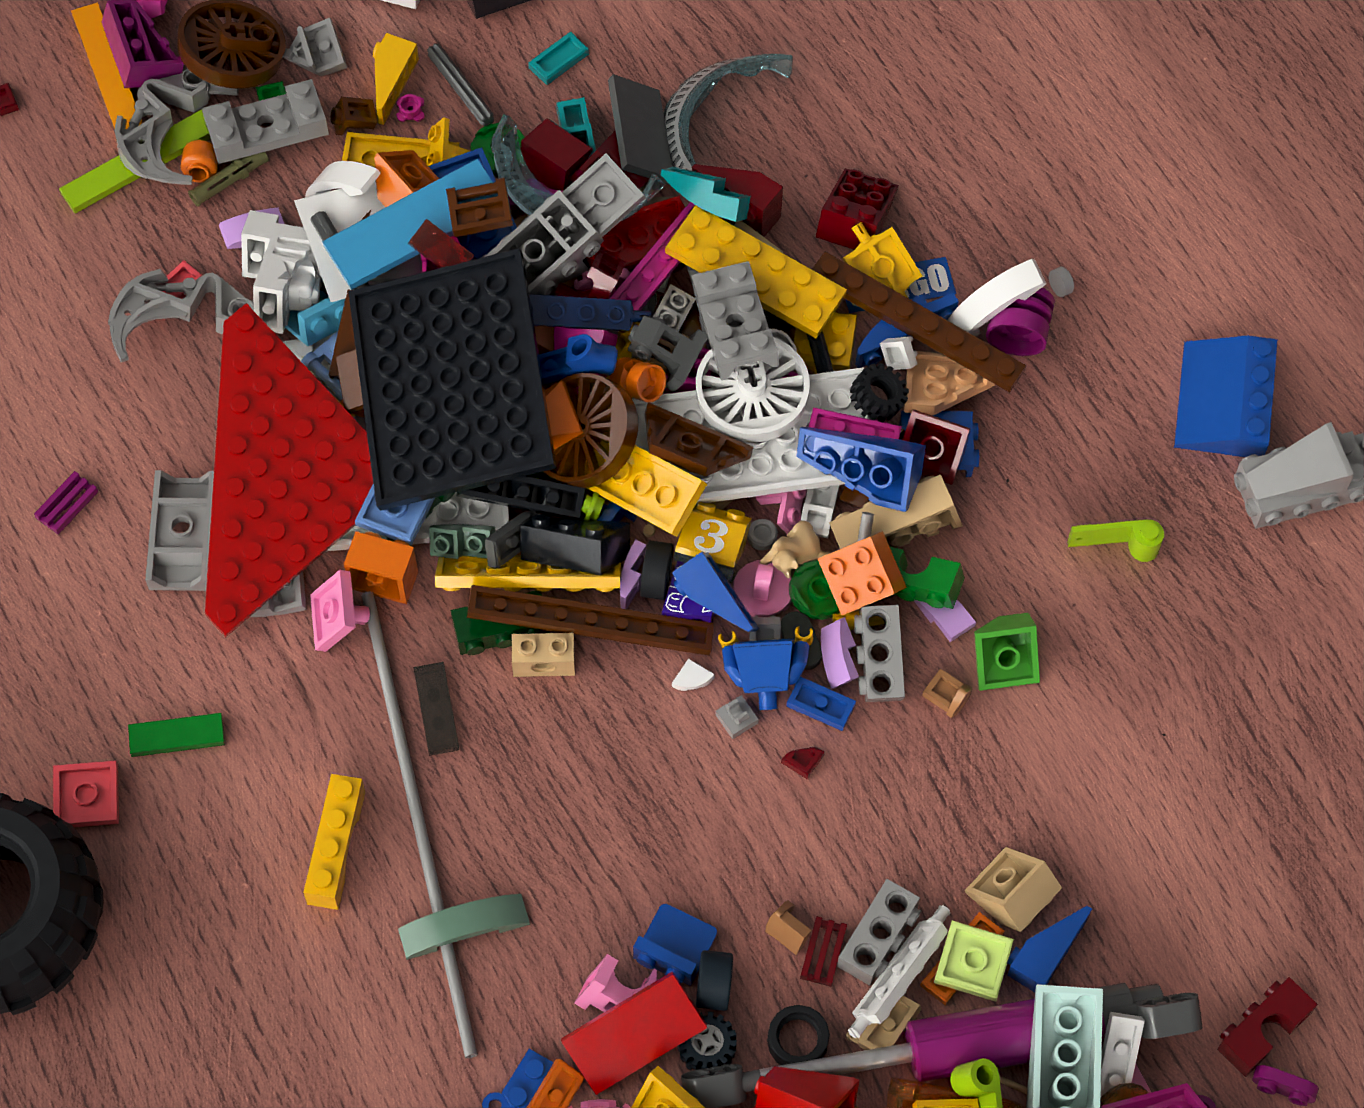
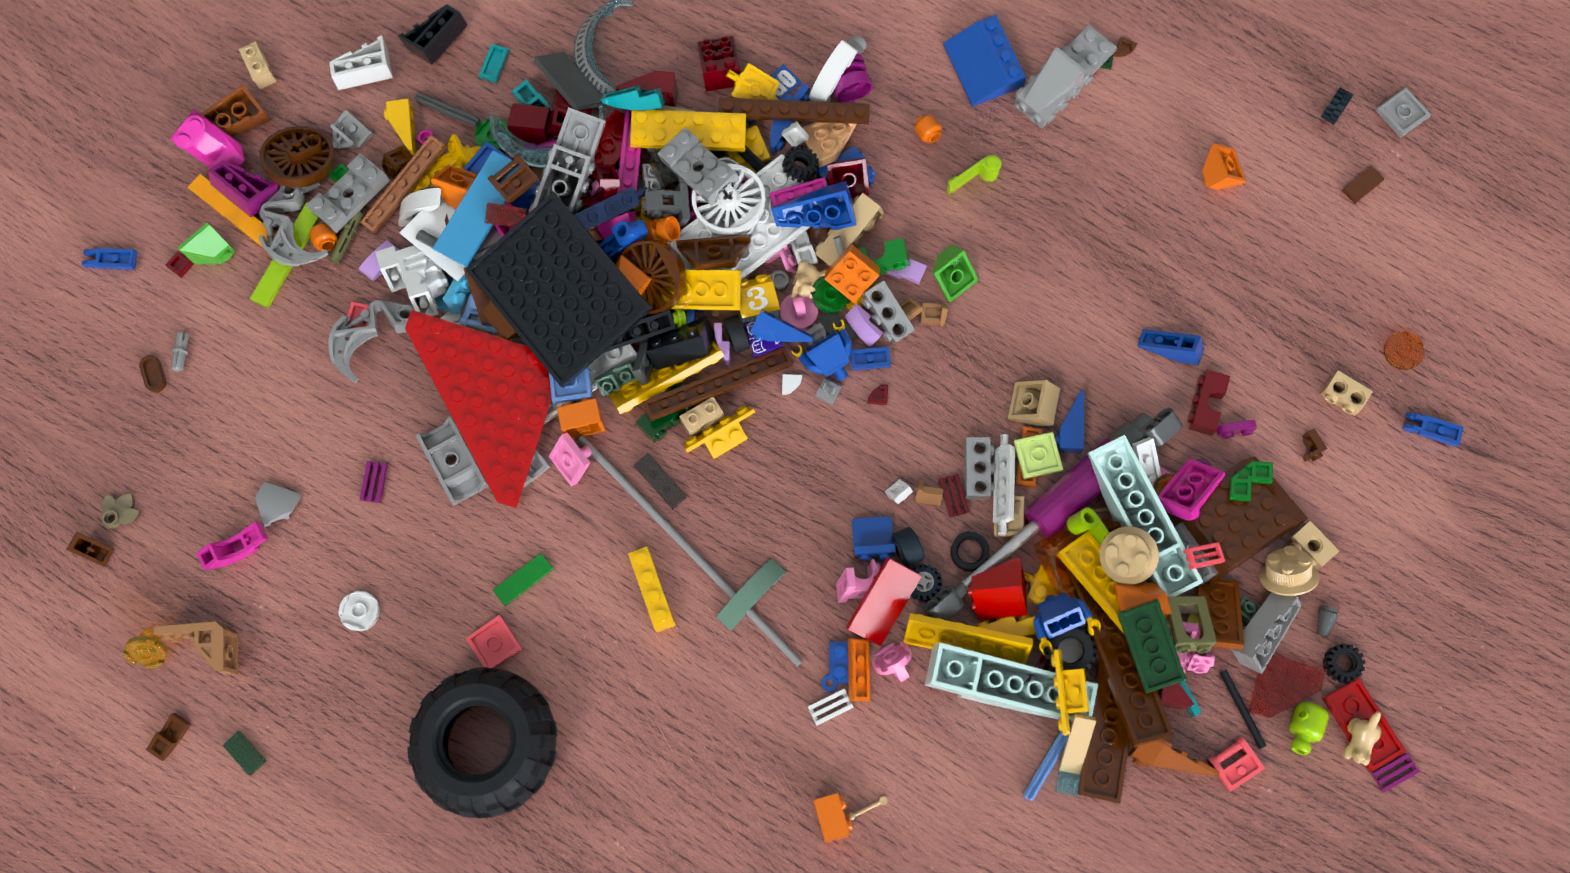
camera: 25 degrees left, 10 degrees up
(46, 95) = (206, 247): none -> slope
(343, 147) = (403, 184): none -> nougat tile
(556, 696) = (723, 435): none -> yellow bracket
(687, 309) = (663, 173): none -> clear smoke hinge
(749, 902) = (898, 491): none -> white plate
(917, 667) = (911, 308): none -> medium nougat tile
(1090, 442) = (928, 128): none -> orange head
(1262, 920) = (1174, 346): none -> blue slope

